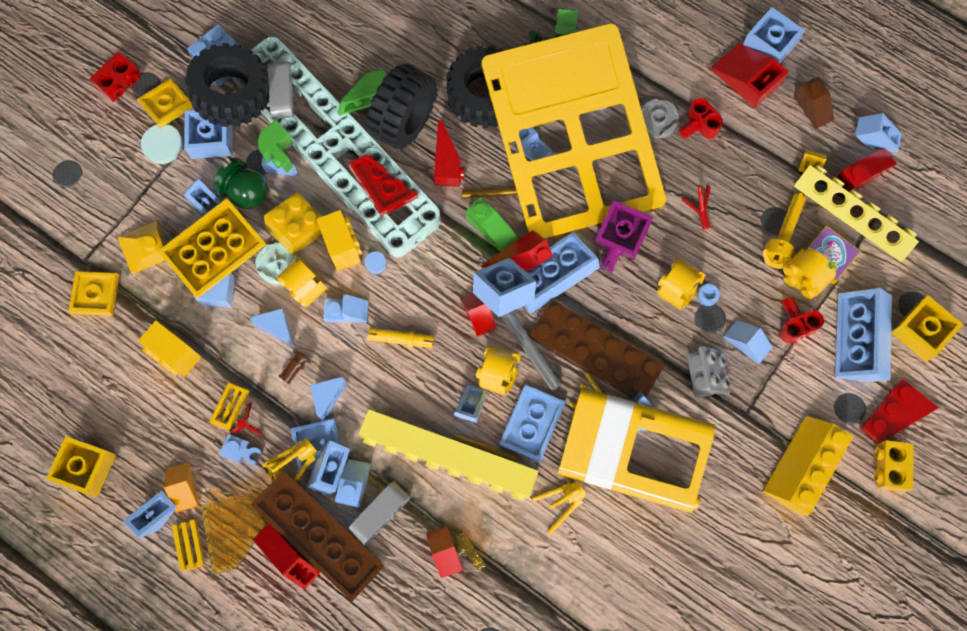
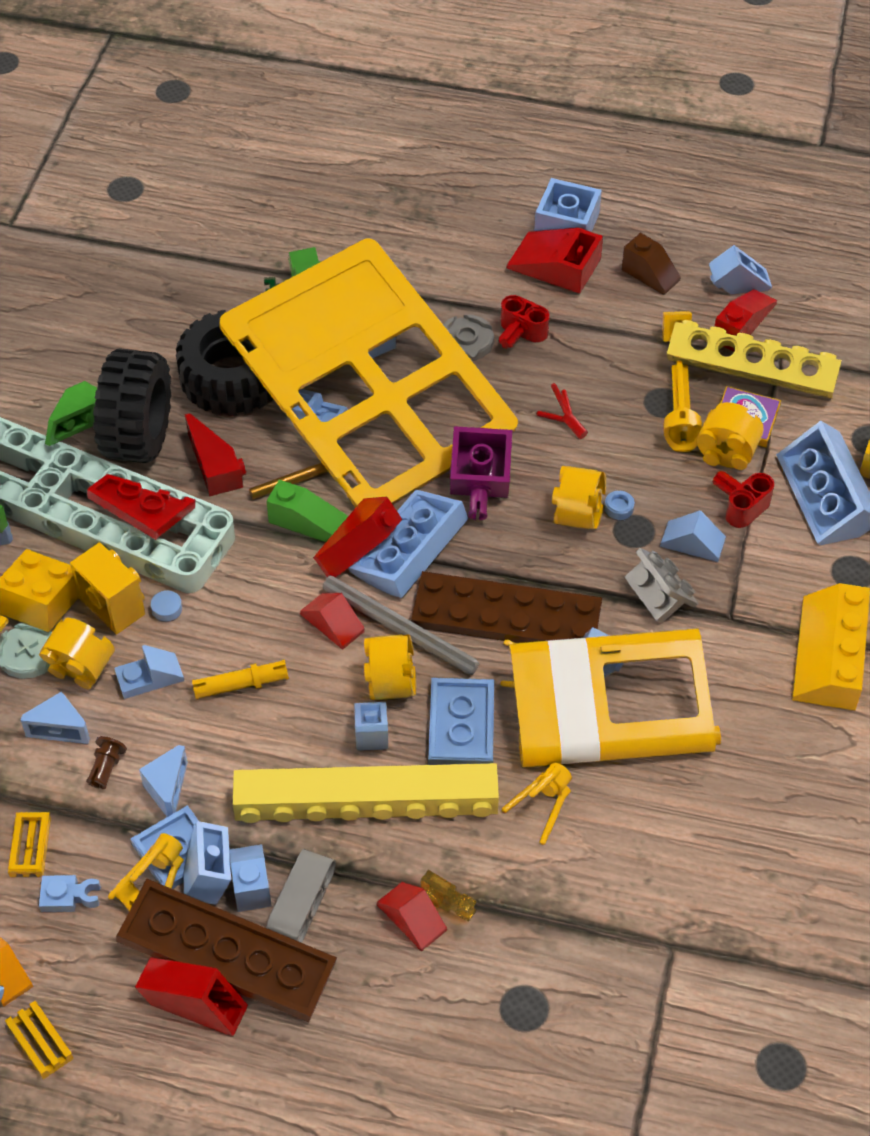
camera: 25 degrees left, 20 degrees down
(231, 530) = (98, 993): clear yellow plate -> none
(244, 424) = (64, 847): red plant -> none
(504, 287) = (356, 564): light blue brick -> none

